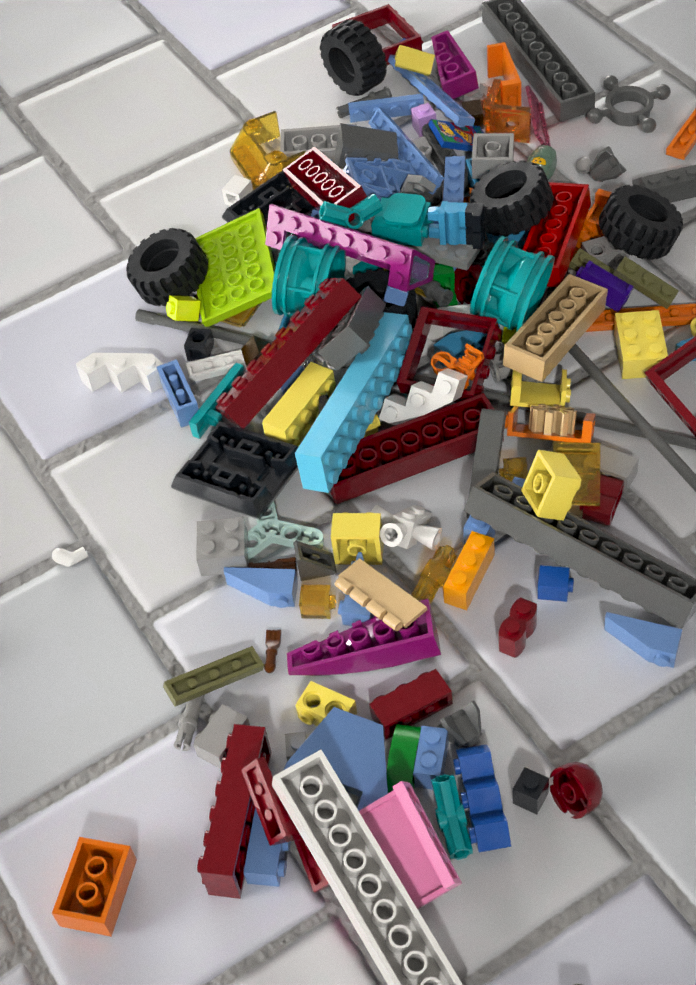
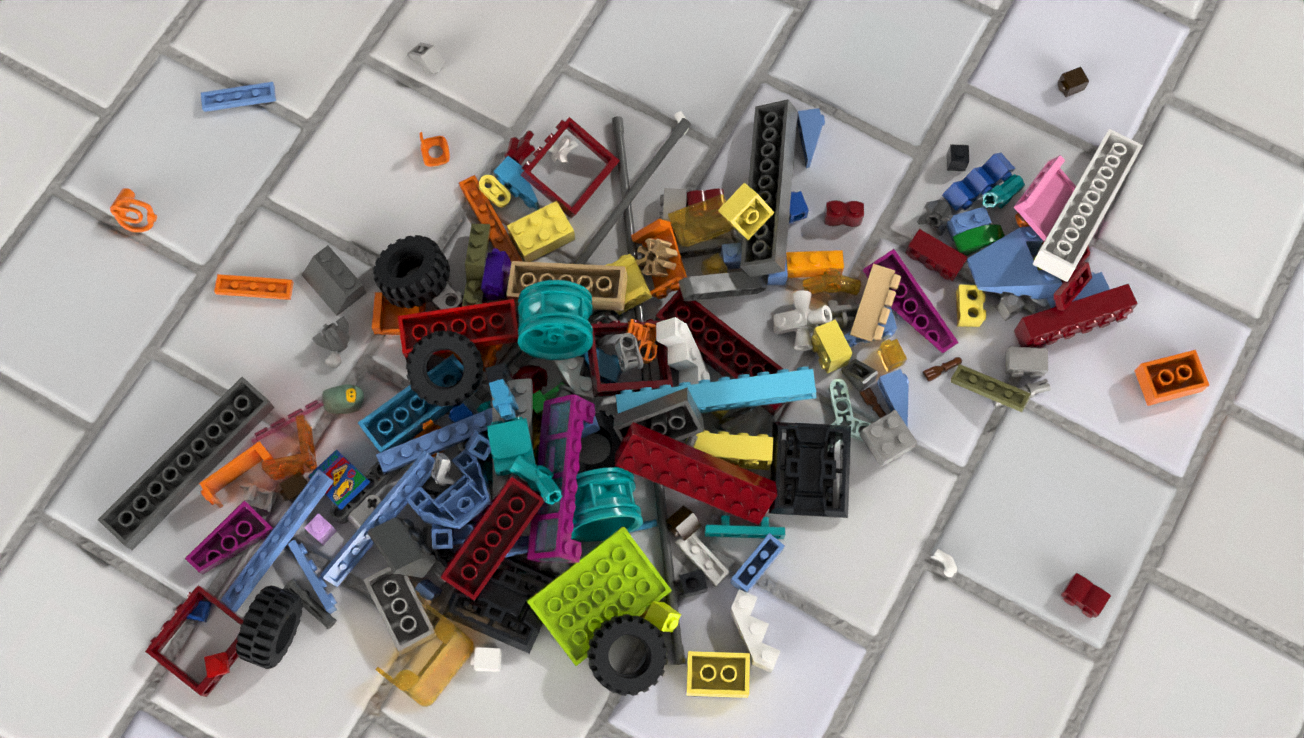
camera: 125 degrees left, 20 degrees up
(105, 328) = (718, 674): none -> light yellow brick
(402, 568) = (843, 313): none -> light grey hips
(414, 60) = (241, 573): light yellow panel -> none
(445, 340) = (629, 356): none -> light grey piece
(491, 151) = (381, 417): light grey brick -> none
(576, 789) = (941, 130): dark red cylinder -> none
(629, 93) = (207, 328): dark grey piece -> none

